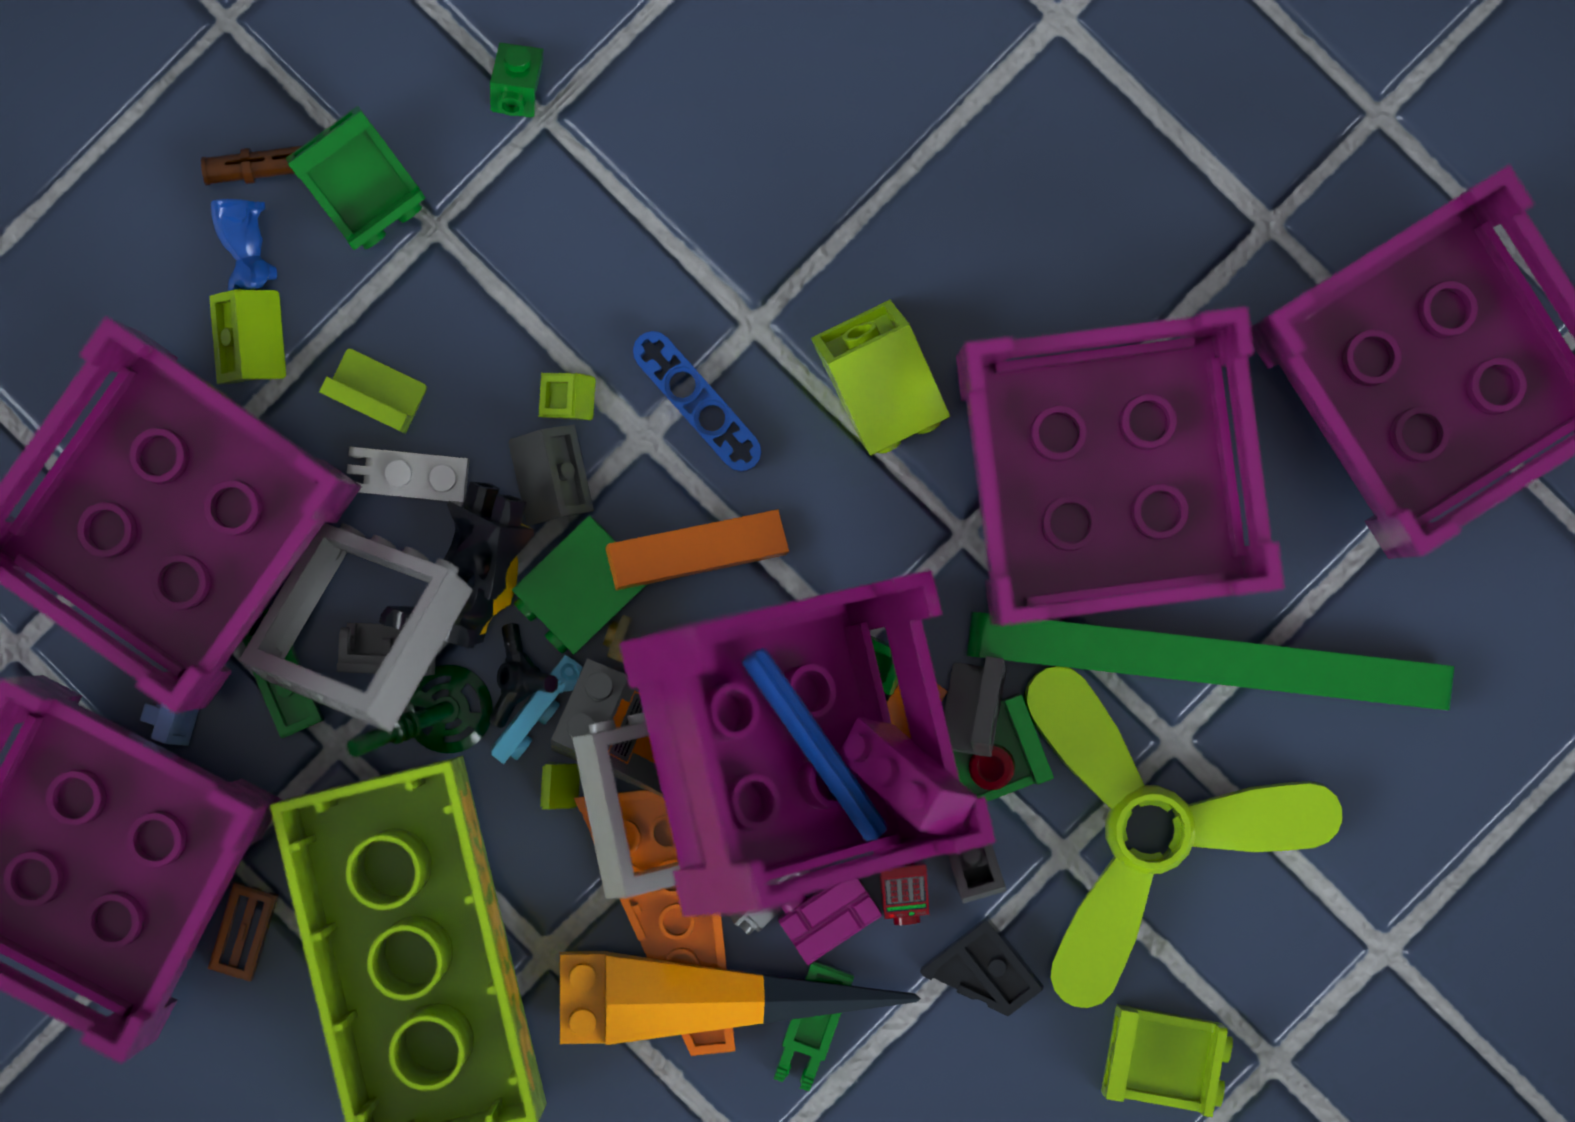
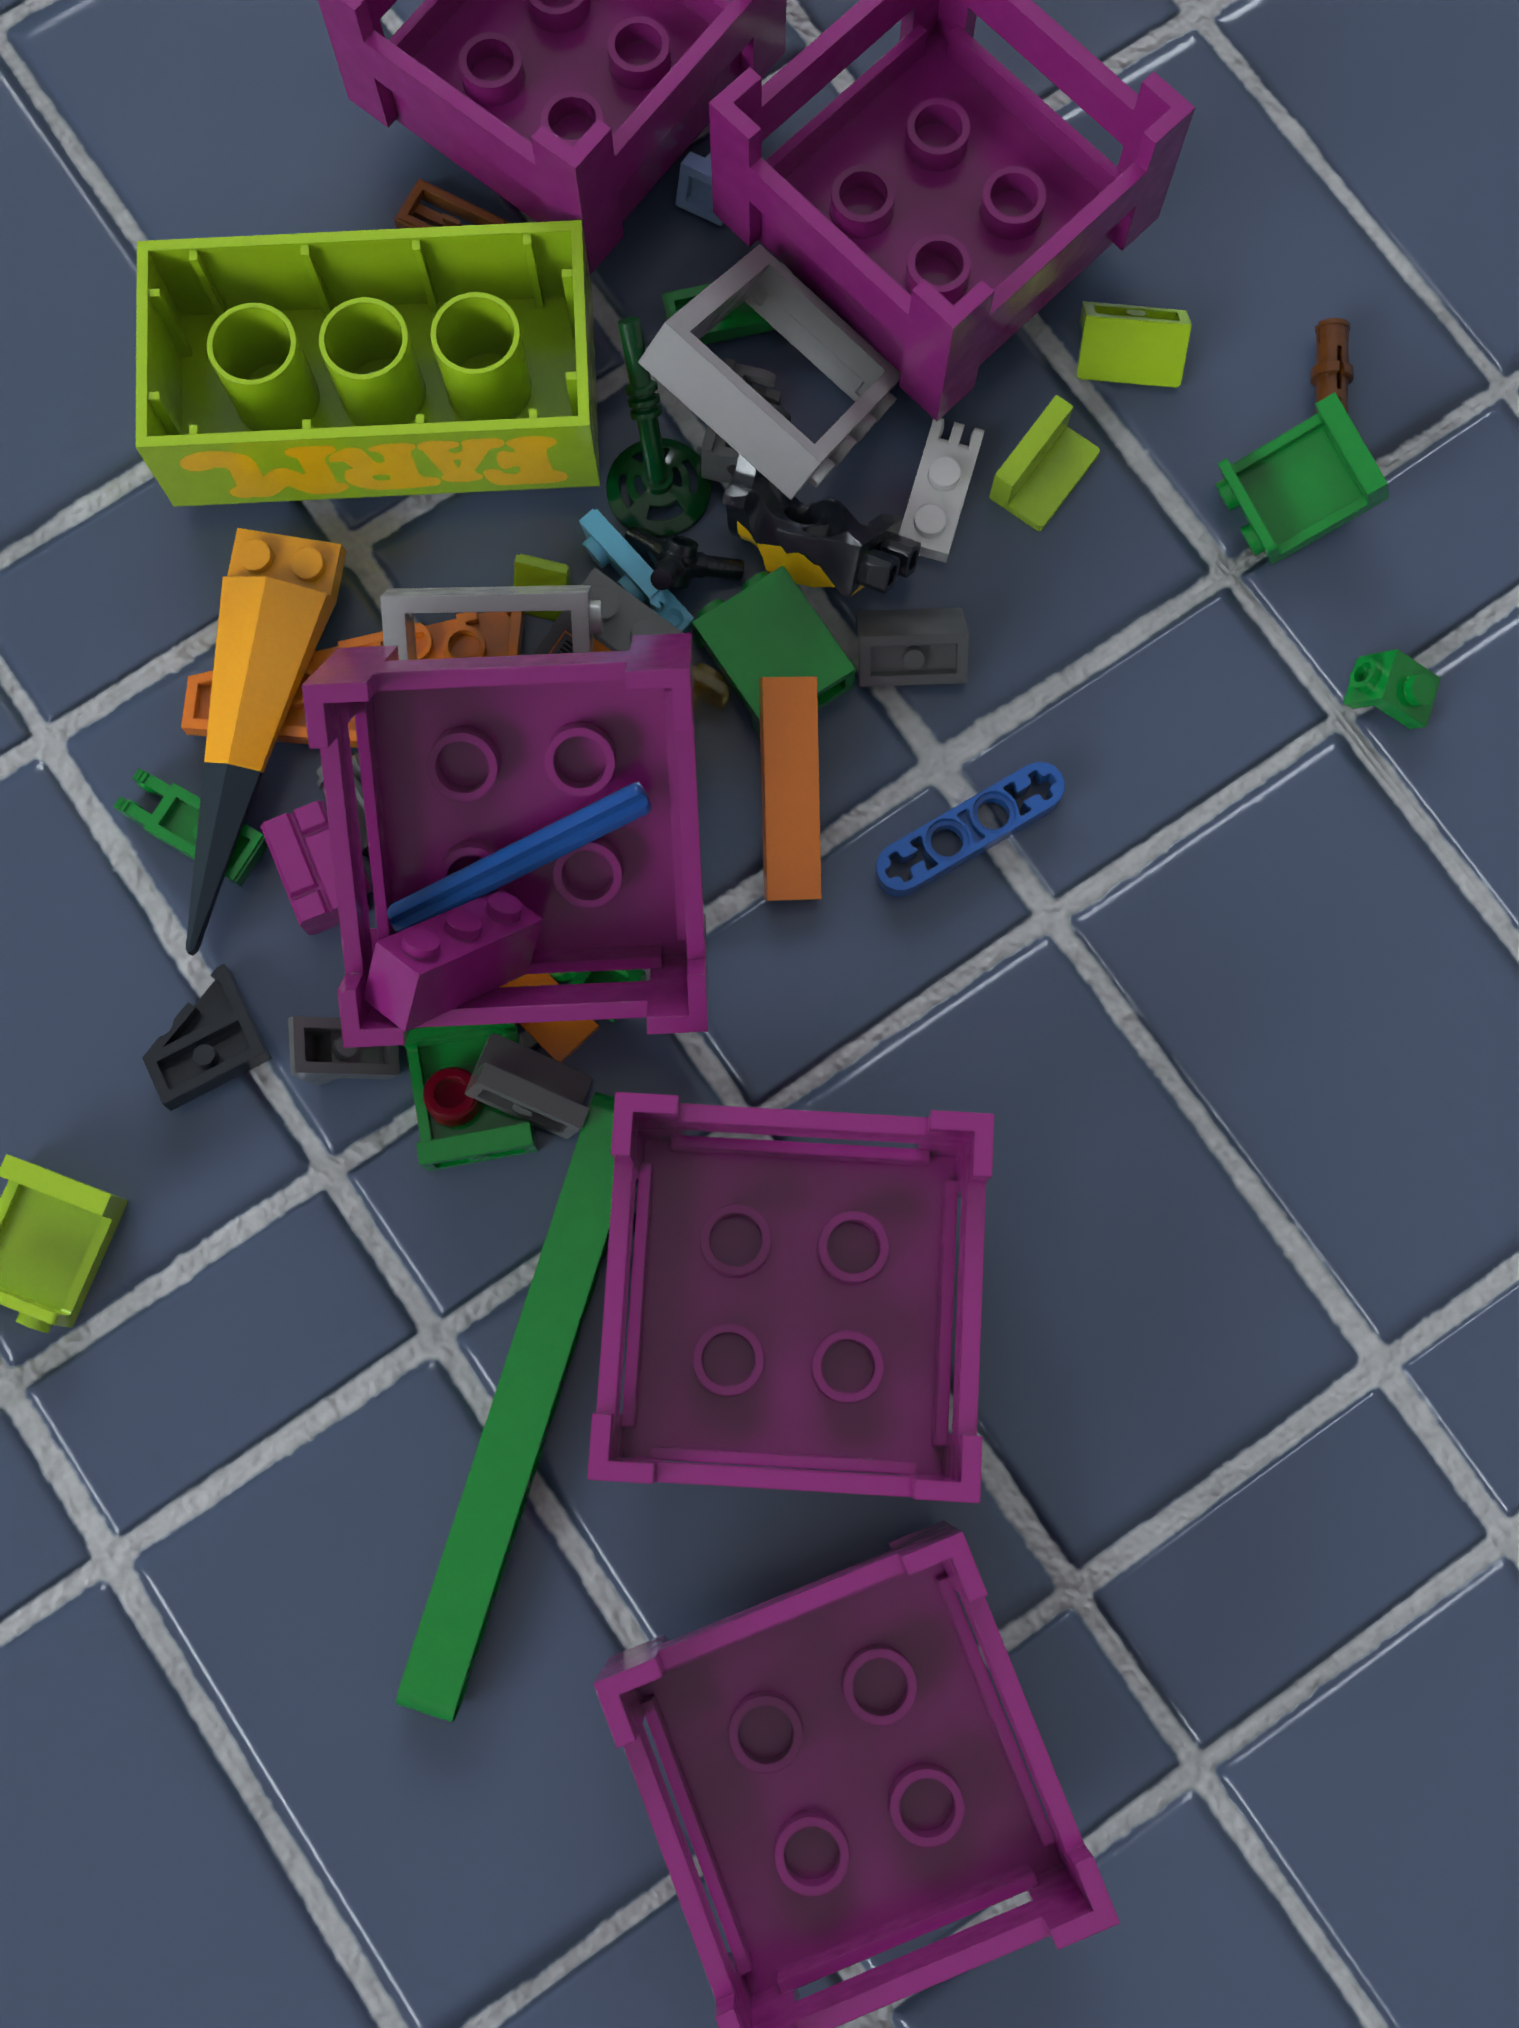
camera: 105 degrees right, 10 degrees down
(239, 233) = (1258, 347): blue animal -> none
(567, 396) = (1001, 683): lime slope -> none
(881, 377) = (960, 1046): lime slope -> none
(905, 893) = (314, 957): dark red slope -> none
(1111, 912) = (314, 1403): lime piece -> none

